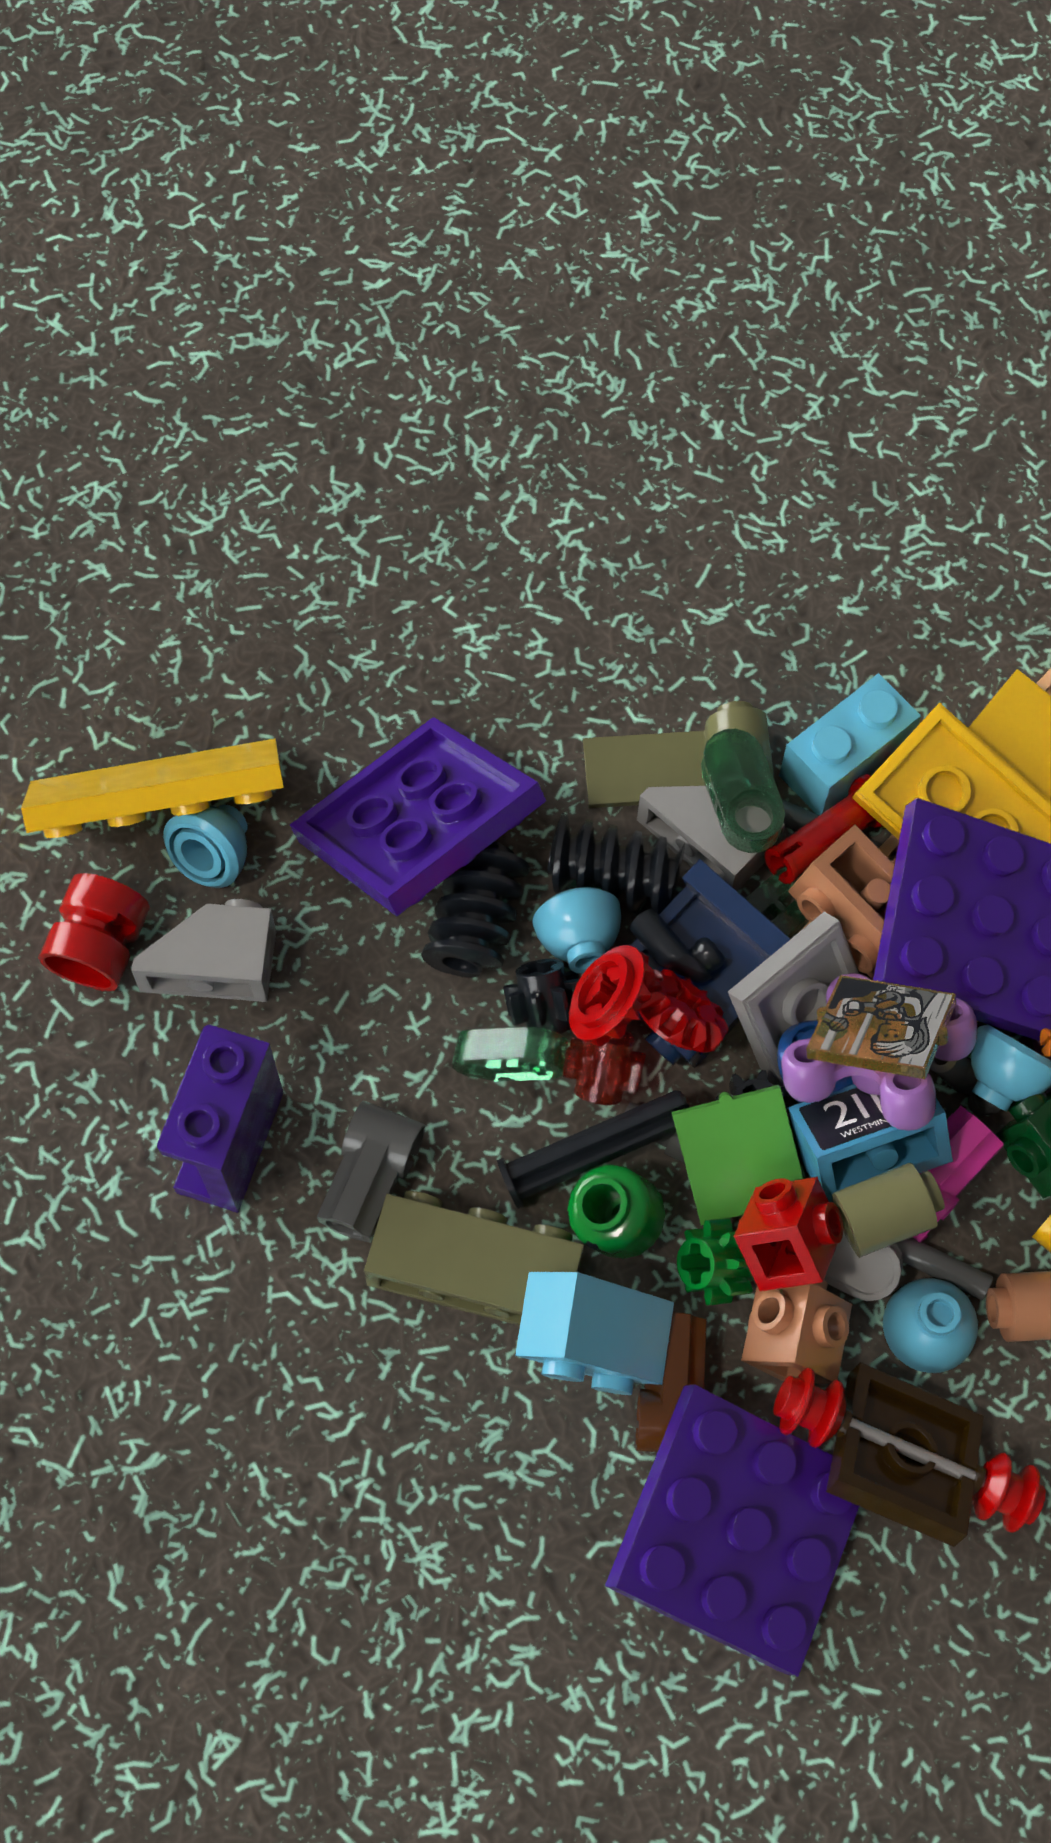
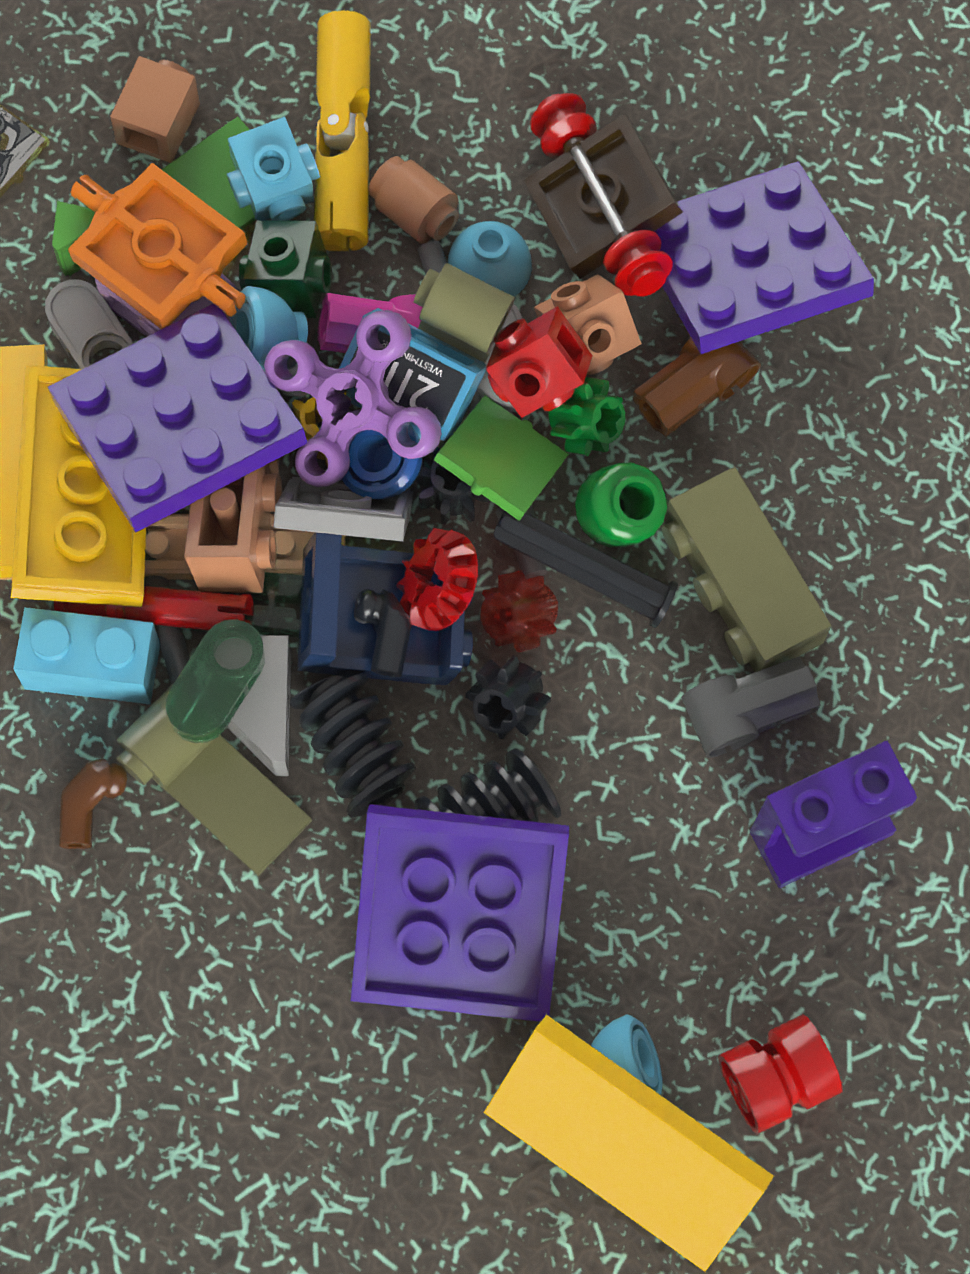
camera: 135 degrees left, 5 degrees up
(212, 954) = (705, 969): light grey slope -> none
(510, 1054) = (577, 678): clear green beam -> none
(578, 925) = (434, 714): medium azure brick -> none
(594, 1330) = (724, 435): medium azure brick -> none
(610, 995) = (475, 645): red gear -> none
(746, 669) = (82, 795): none -> reddish brown arm
(882, 1026) = (346, 392): piece -> none

